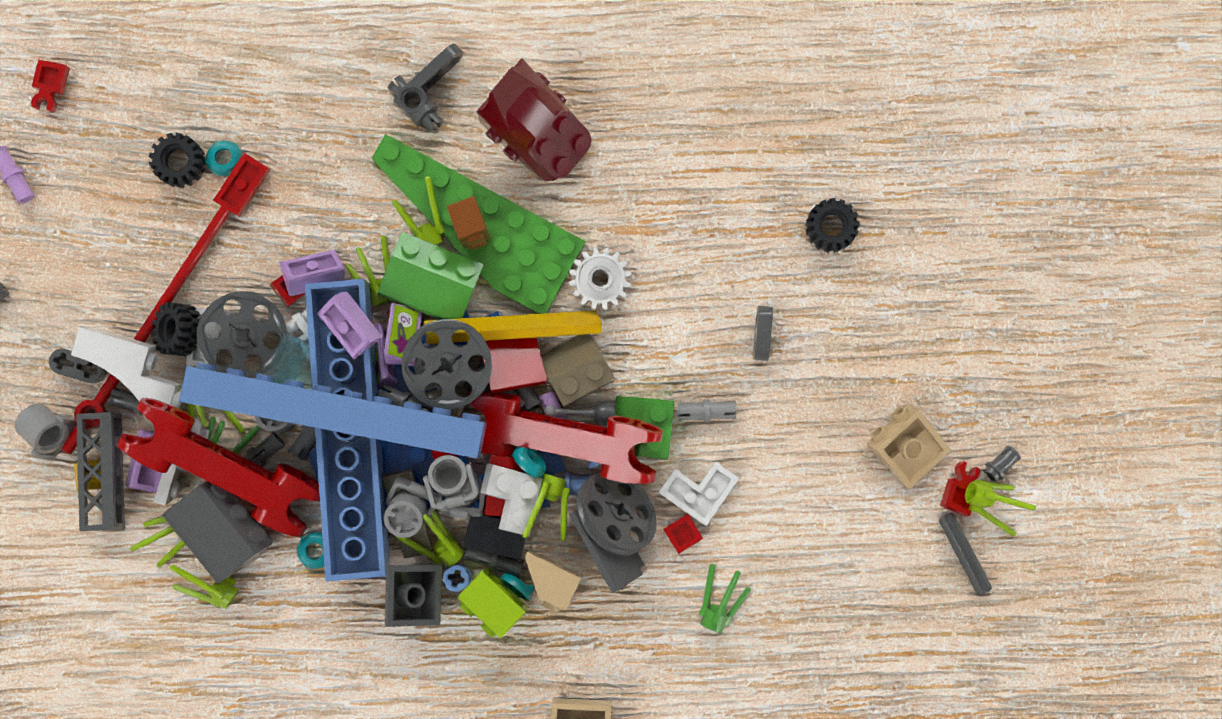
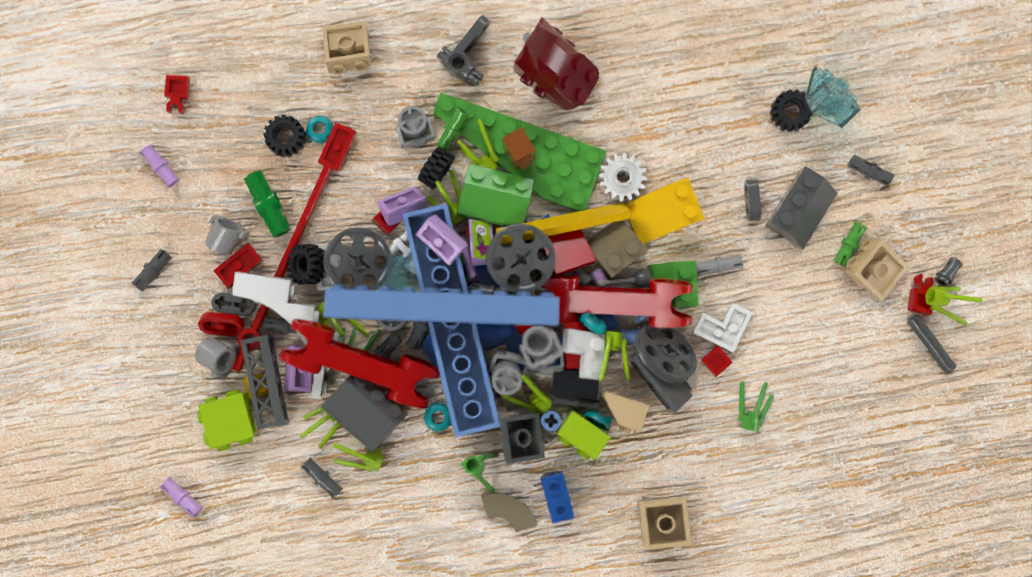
camera: 10 degrees left, 0 degrees up
(43, 514) = (227, 420): none -> lime brick
(56, 389) = (221, 324): none -> red plate
(78, 275) = (224, 235): none -> light grey piece
(97, 313) = (242, 261): none -> red plate
(140, 244) = (267, 204): none -> green piece
(153, 605) = (321, 478): none -> dark grey pin
(274, 59) = (346, 47): none -> tan plate
(344, 171) = (414, 126): none -> light grey piece
(348, 622) = (475, 466): none -> bright green plant
(362, 230) = (436, 167): none -> black tyre
(387, 683) = (510, 509): none -> dark tan tile
(391, 184) = (453, 128): none -> bright green pin
(449, 677) = (557, 497): none -> blue brick
(646, 331) = (665, 211): none -> yellow slope
(826, 353) = (802, 207): none -> dark grey slope
(880, 408) = (850, 244): none -> bright green pin
(883, 216) = (831, 97): none -> clear light blue slope
(922, 317) = (870, 170): none -> dark grey pin

